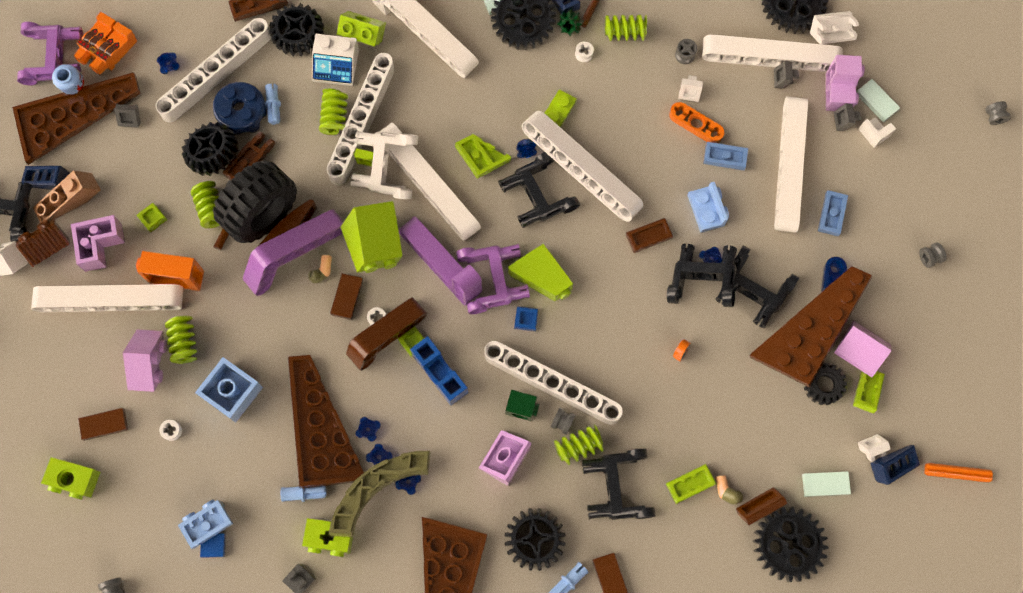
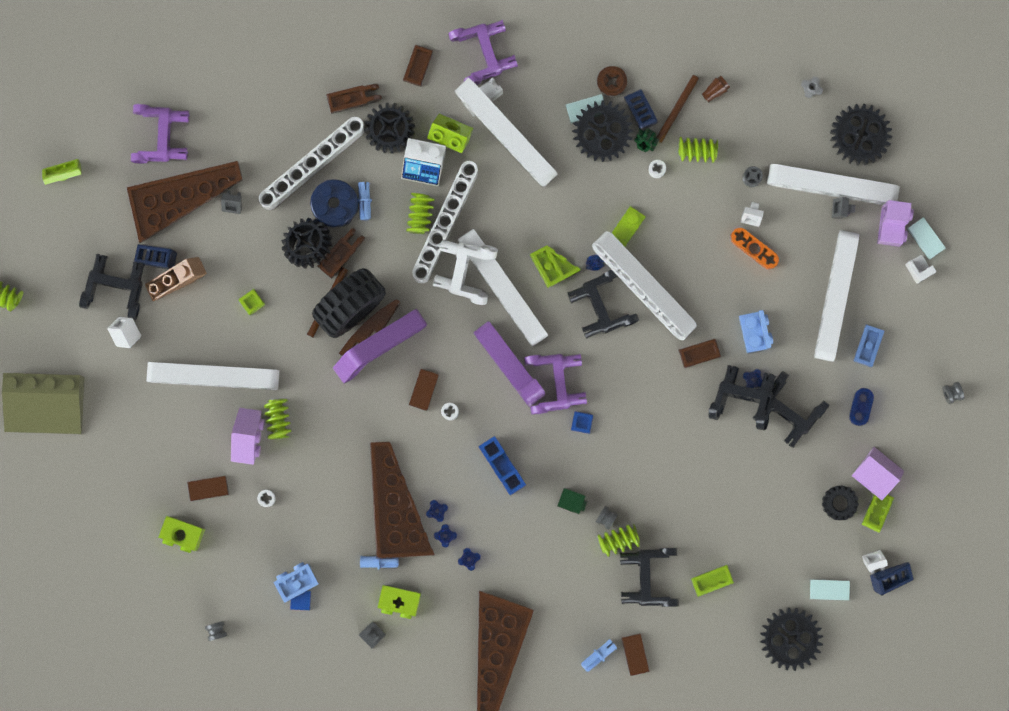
camera: 10 degrees right, 10 degrees up
(42, 242) = (156, 321): reddish brown brick -> none
(68, 79) = (172, 166): light blue head -> none
(92, 237) = (198, 323): lavender brick -> none
(105, 44) = (210, 129): orange hips -> none
(164, 58) = (273, 153): clear blue plate -> none
(170, 269) = (270, 357): orange window -> none
(204, 199) = (303, 294): lime piece -> none
(229, 389) = (319, 468): light blue brick -> none
(323, 272) = (404, 365): arm -> none
(364, 157) = (447, 261): lime tile -> none
(366, 345) = (457, 427): reddish brown beam -> none
(371, 483) = (439, 558): olive tile -> none
(373, 236) = (451, 341): lime slope -> none
(410, 339) = (479, 435): lime tile -> none
(505, 457) = (553, 544): lavender slope -> none
(520, 541) = (557, 619): black gear -> none
(542, 274) = (600, 383): lime slope -> none
(558, 392) = (610, 484): white beam -> none
(681, 350) = (717, 462): orange tile -> none
(725, 156) = (777, 283): medium blue plate -> none
(727, 493) = (742, 591): arm -> none
(761, 506) = (770, 604): reddish brown tile -> none
(808, 337) = (829, 461): reddish brown wing -> none
(834, 27) = (894, 165): white hinge -> none
(846, 117) = (893, 254): dark grey tile -> none
(958, 472) = (945, 589): orange axle -> none

